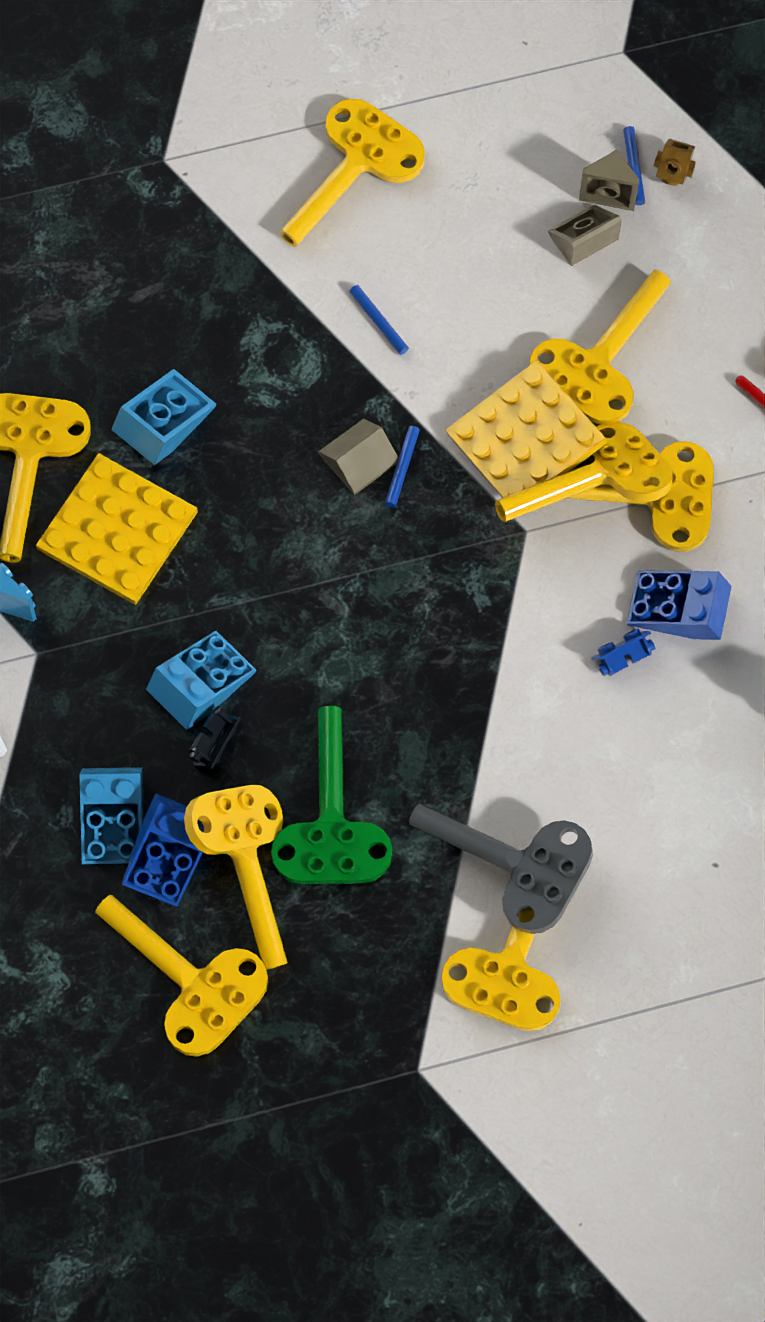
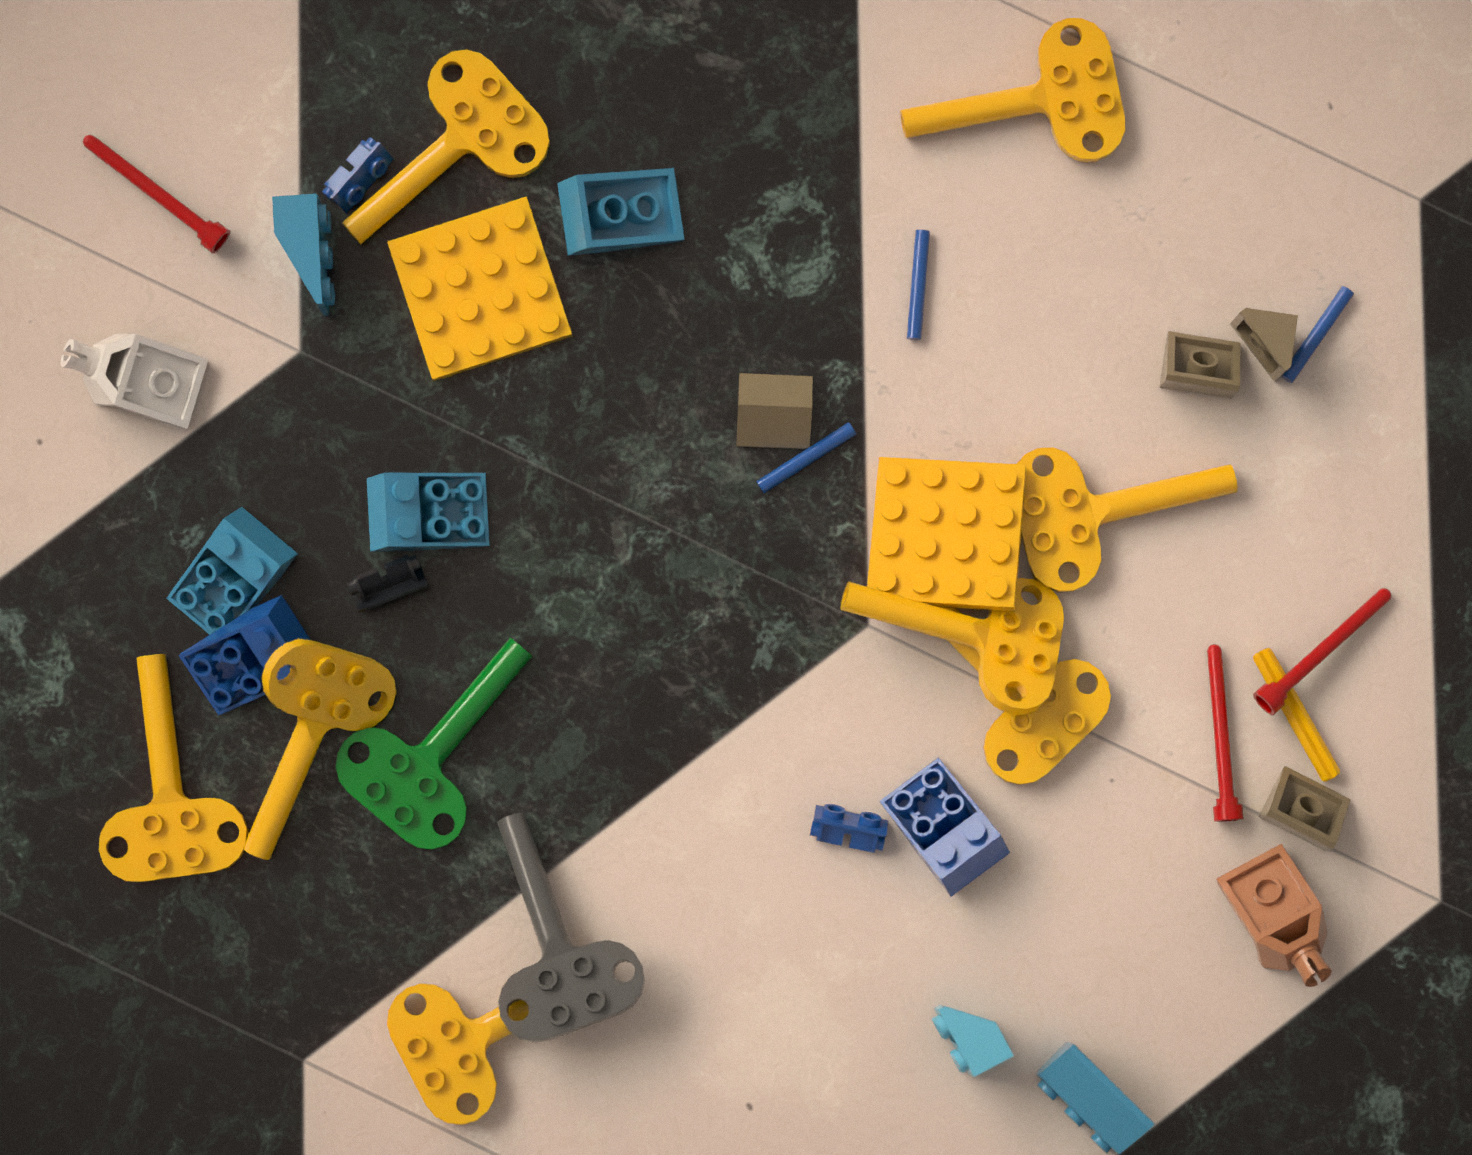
camera: 35 degrees right, 15 degrees up
(675, 162) = (1356, 369): pearl gold brick -> none

